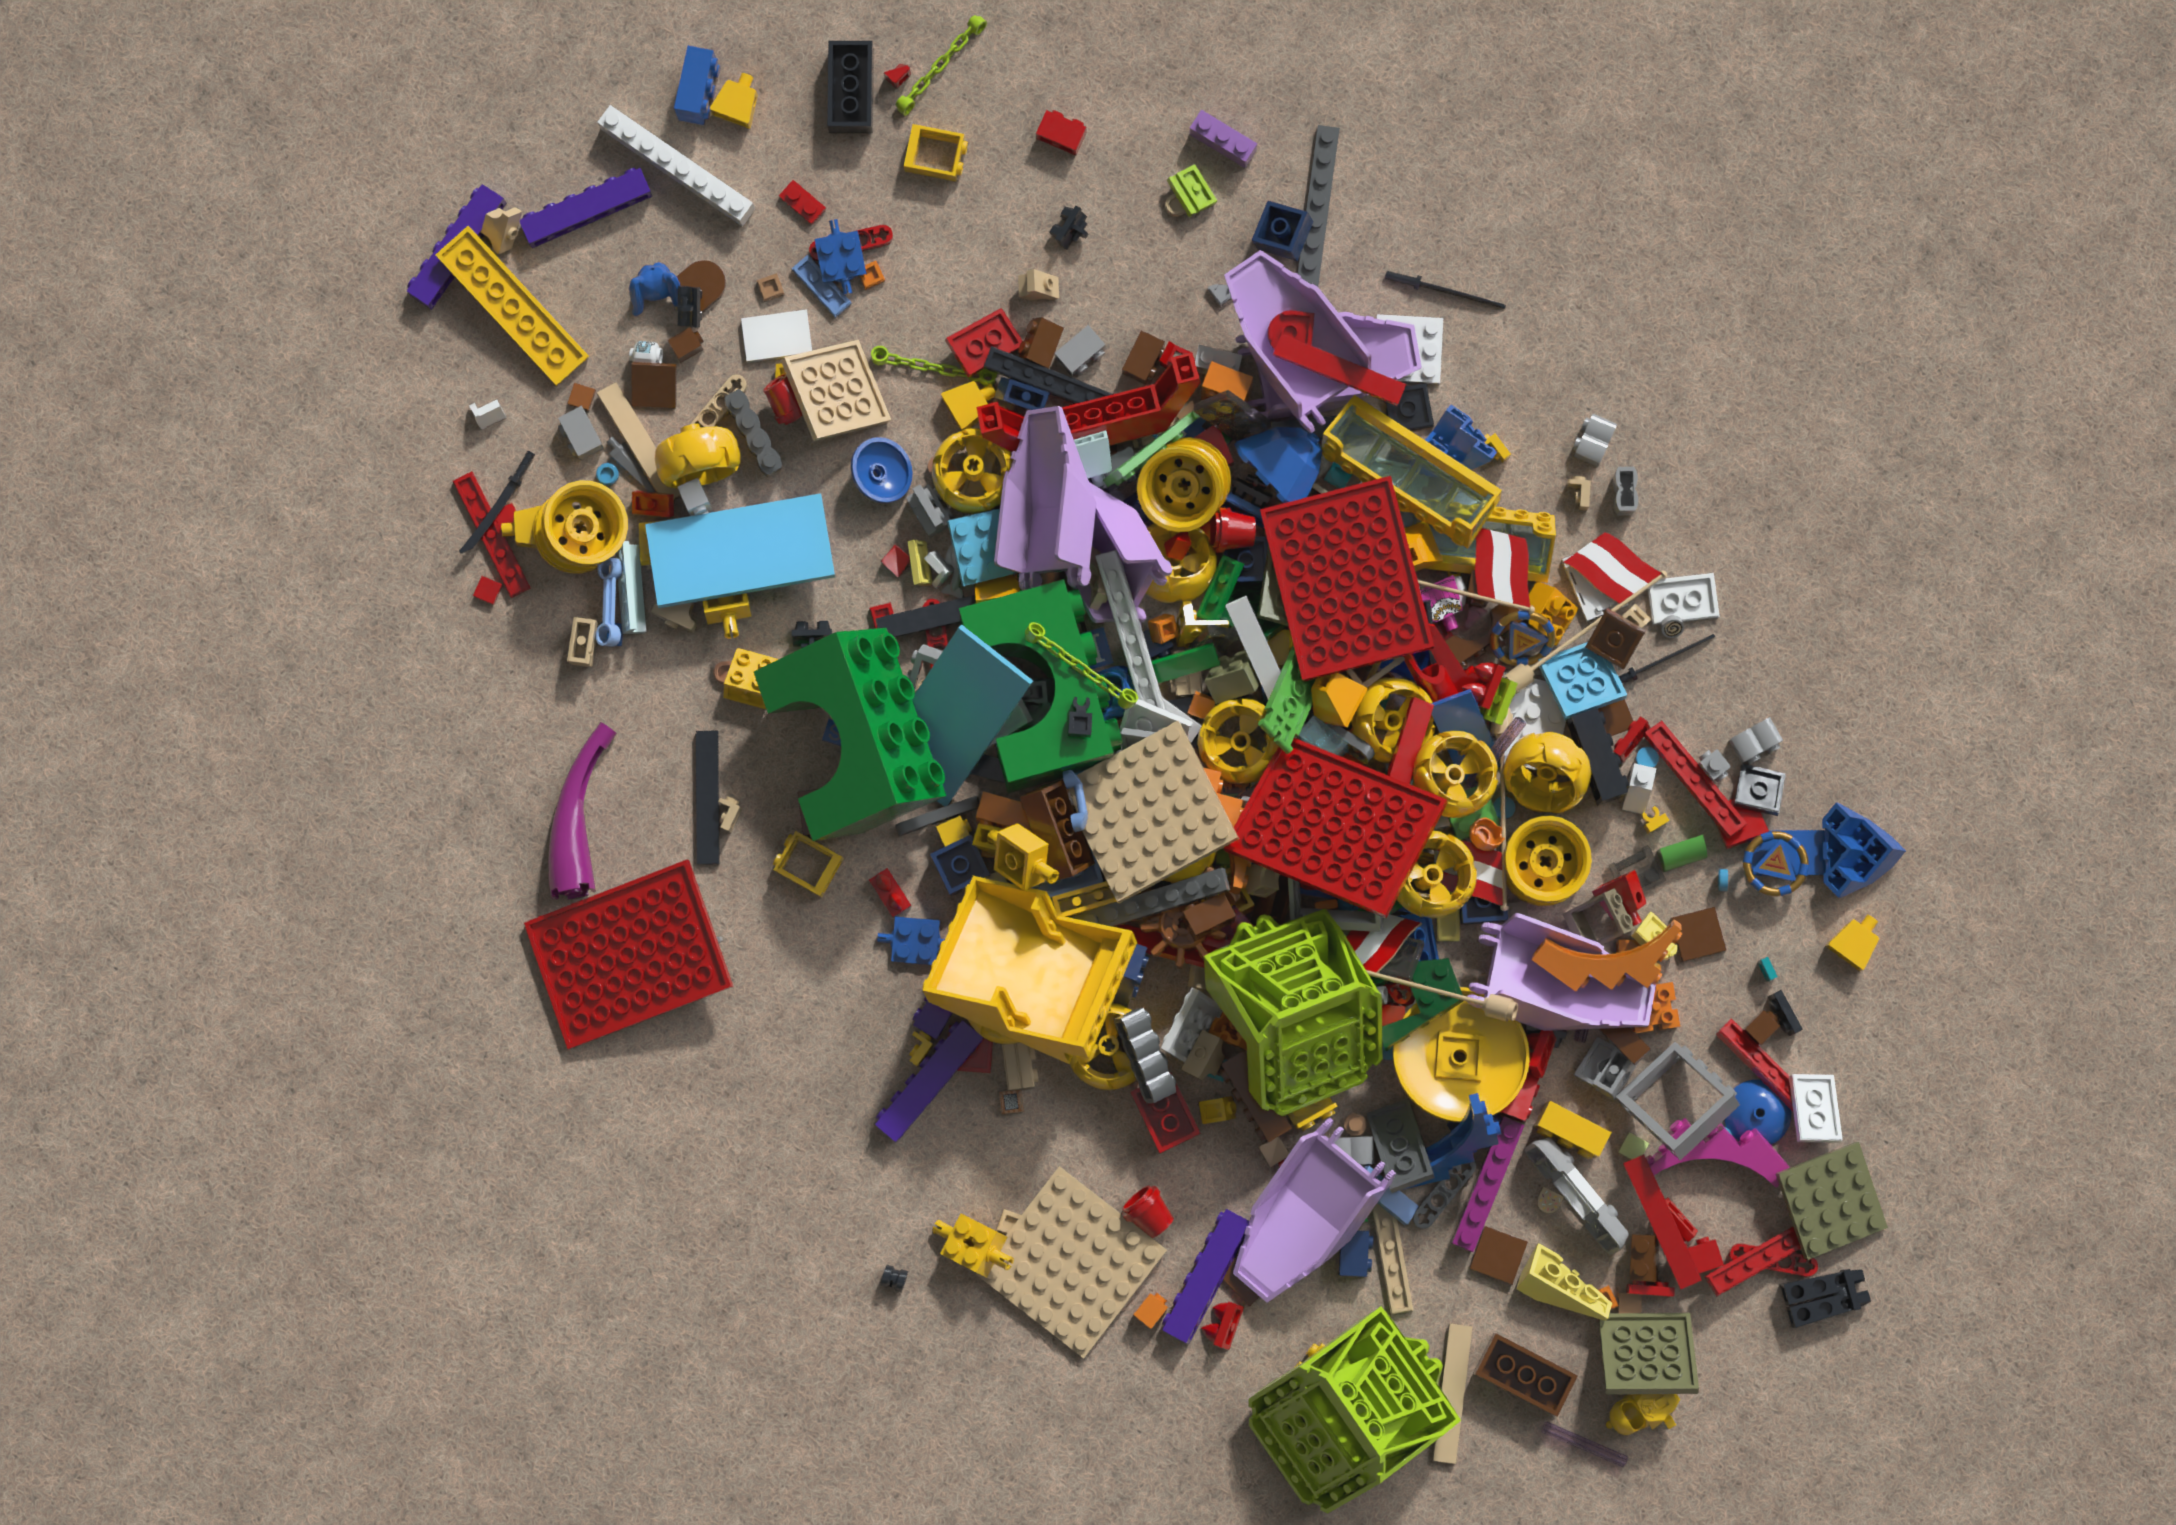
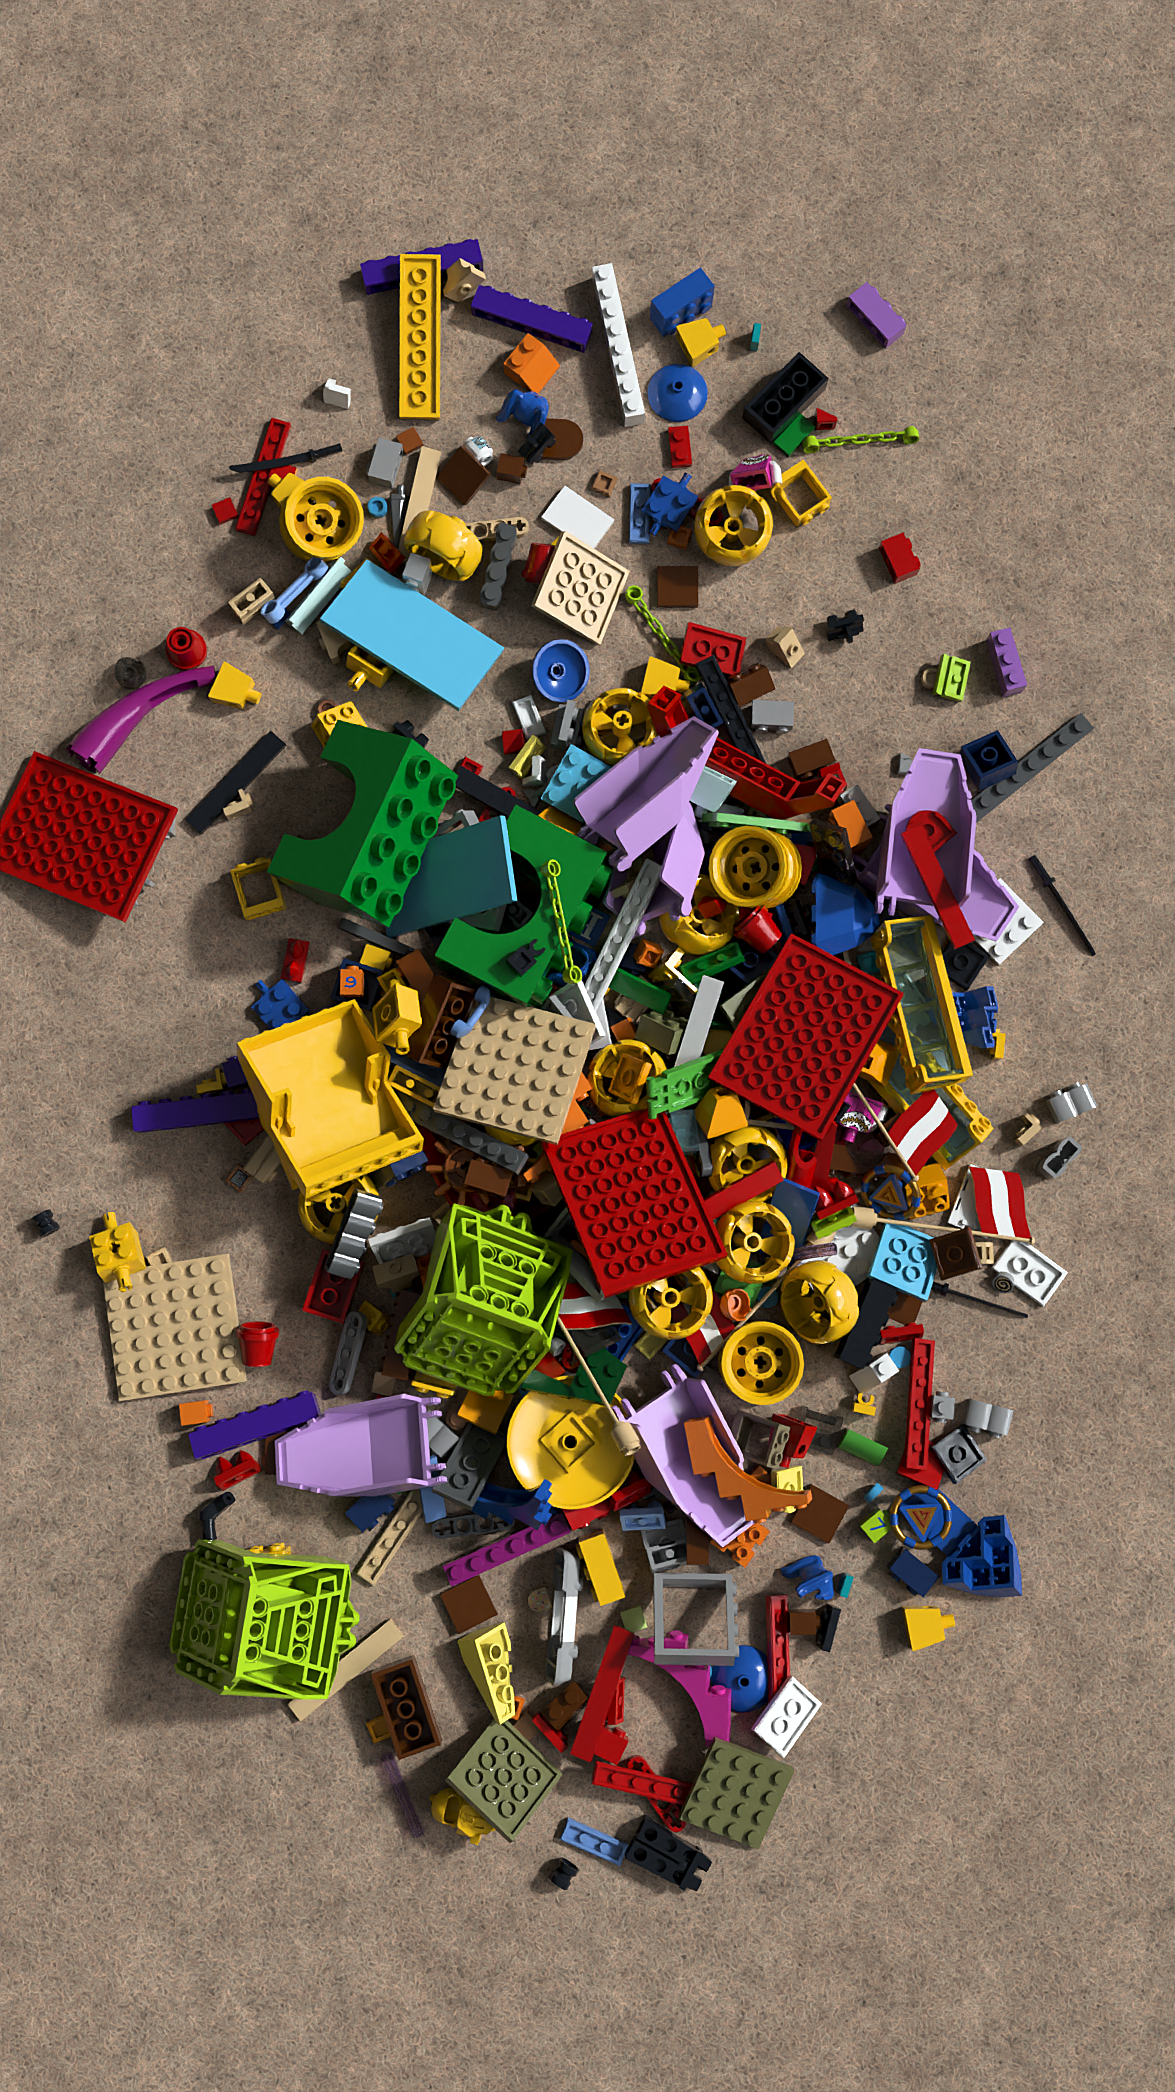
camera: 35 degrees right, 0 degrees up
(540, 789) = (130, 673): none -> clear smoke hair
(572, 737) = (187, 656): none -> red piece
(621, 246) = (531, 364): none -> orange slope
(634, 724) = (233, 688): none -> yellow torso
(762, 173) = (674, 403): none -> blue dish
(779, 58) = (755, 337): none -> teal tile
(884, 109) = (794, 435): none -> green tile
(885, 173) = (758, 474): none -> dark pink torso
(889, 530) = (529, 717): none -> white tile
(907, 316) = (677, 586): none -> reddish brown tile
(936, 226) = (754, 541): none -> yellow wheel
(956, 865) = (352, 982): none -> orange brick
(1225, 1153) = (348, 1353): none -> light grey plate
(1236, 1371) = (212, 1510): none -> black arm
(1242, 737) = (629, 1078): none -> light orange tile
(1371, 1096) = (484, 1410): none -> light orange tile
(1520, 1411) = (378, 1729): none -> light orange tile
(1568, 1064) = (643, 1518): none -> light blue tile
(1738, 984) = (813, 1577): none -> blue hair
(1748, 902) = (876, 1524): none -> lime brick
(1760, 1340) = (593, 1841): none -> medium blue tile
(1760, 1384) = (564, 1873): none -> black wheel
(1808, 911) = (912, 1572): none -> dark blue brick

